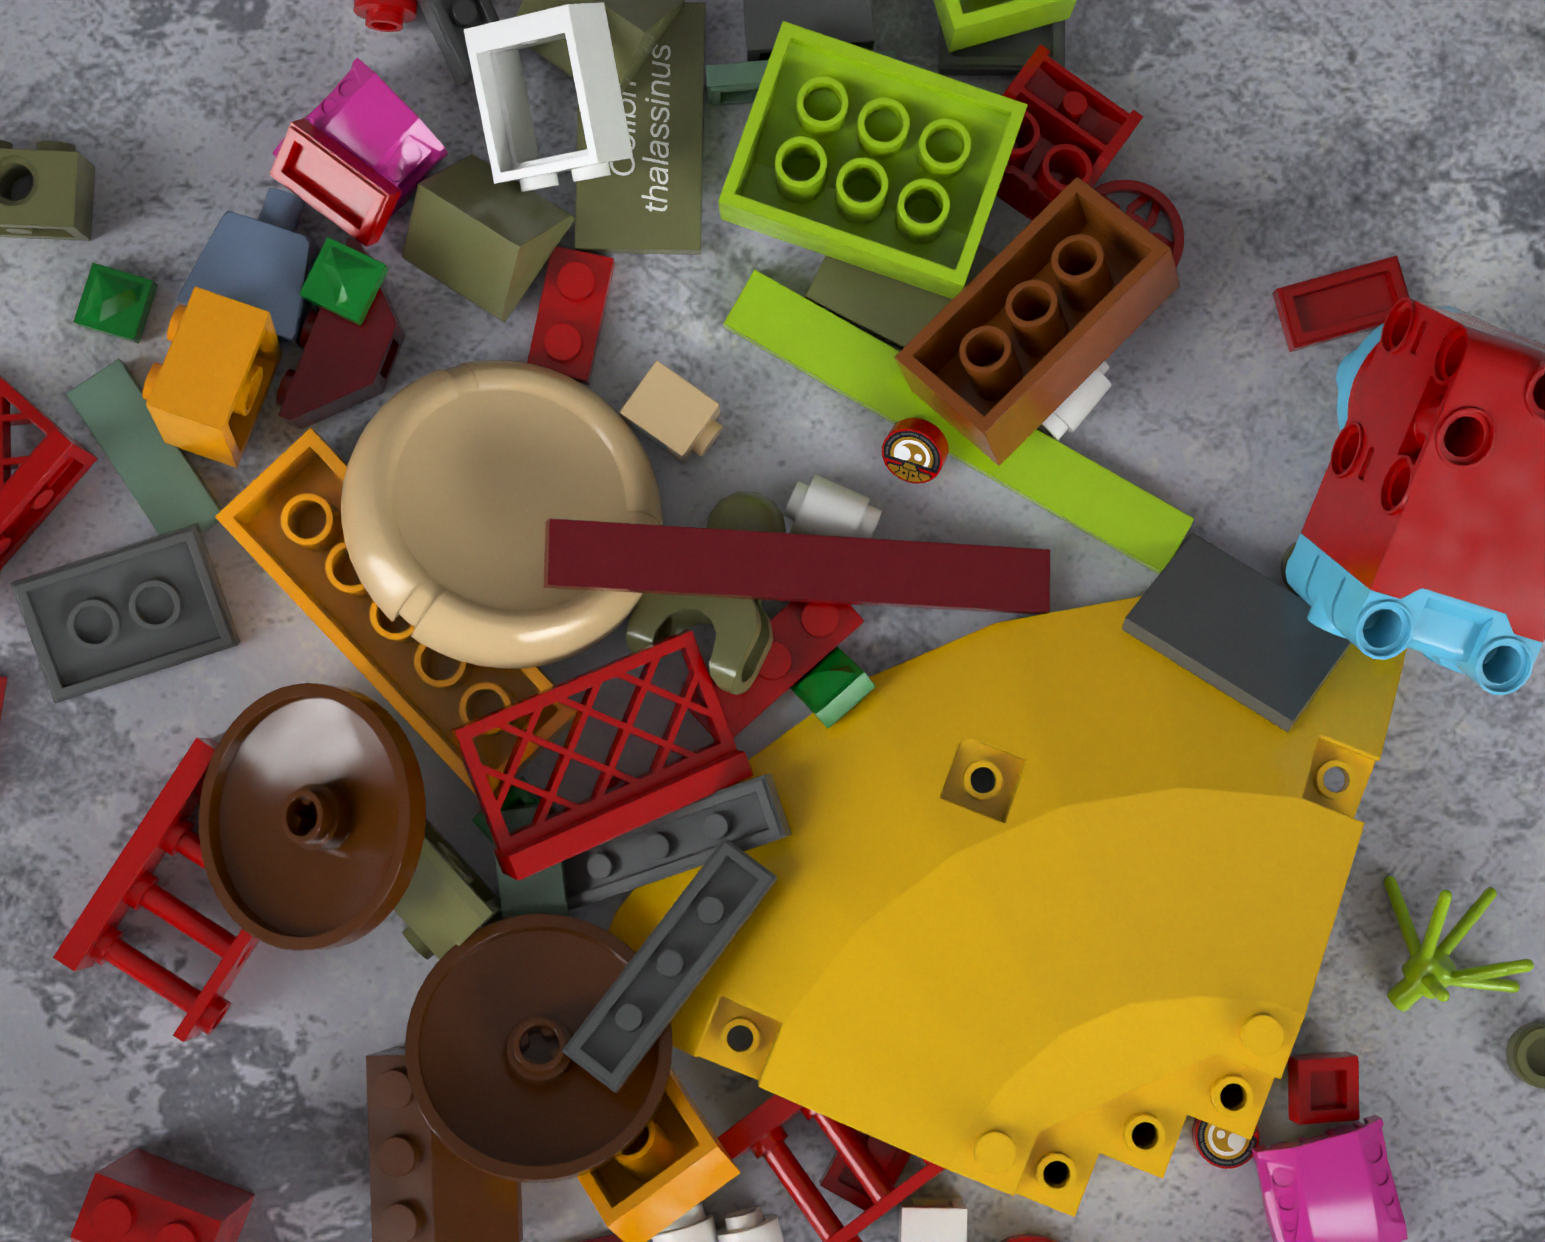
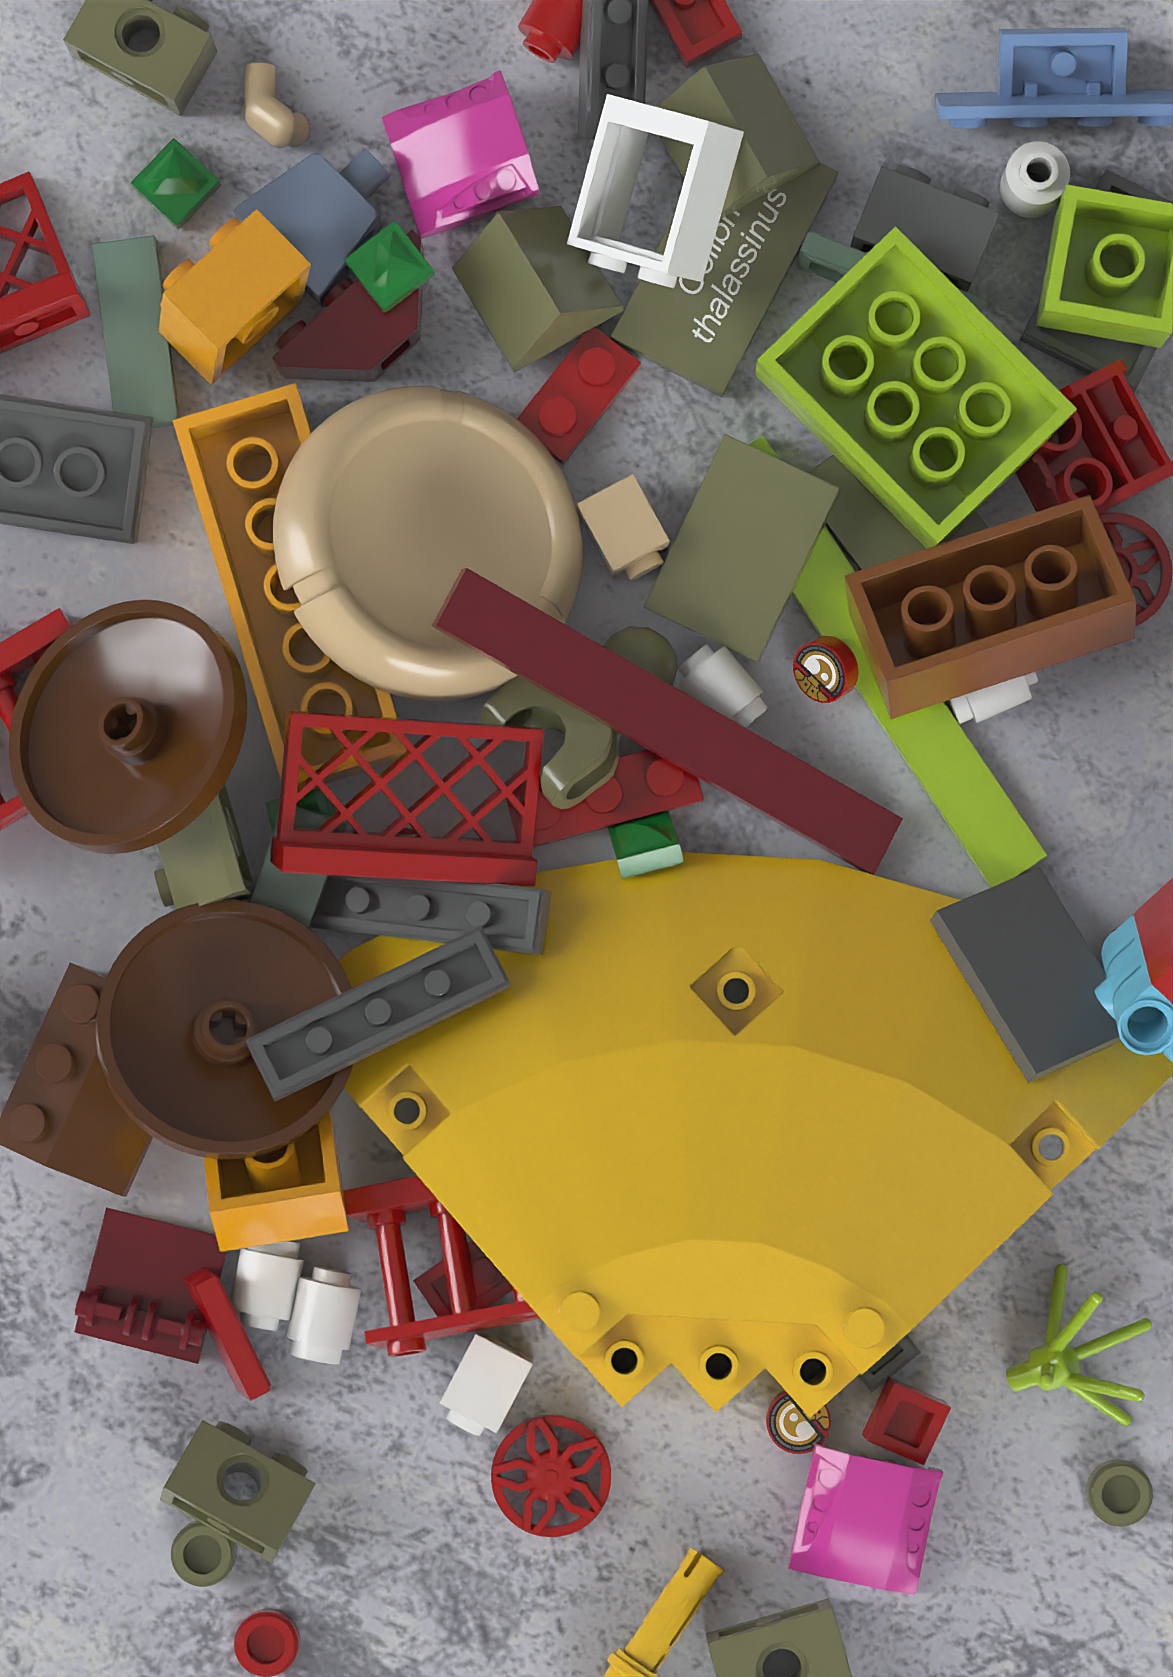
camera: 35 degrees right, 0 degrees up
(167, 200) = (266, 113): none -> tan arm
(335, 182) = (425, 173): tile -> none
(787, 378) = (742, 548): none -> olive tile

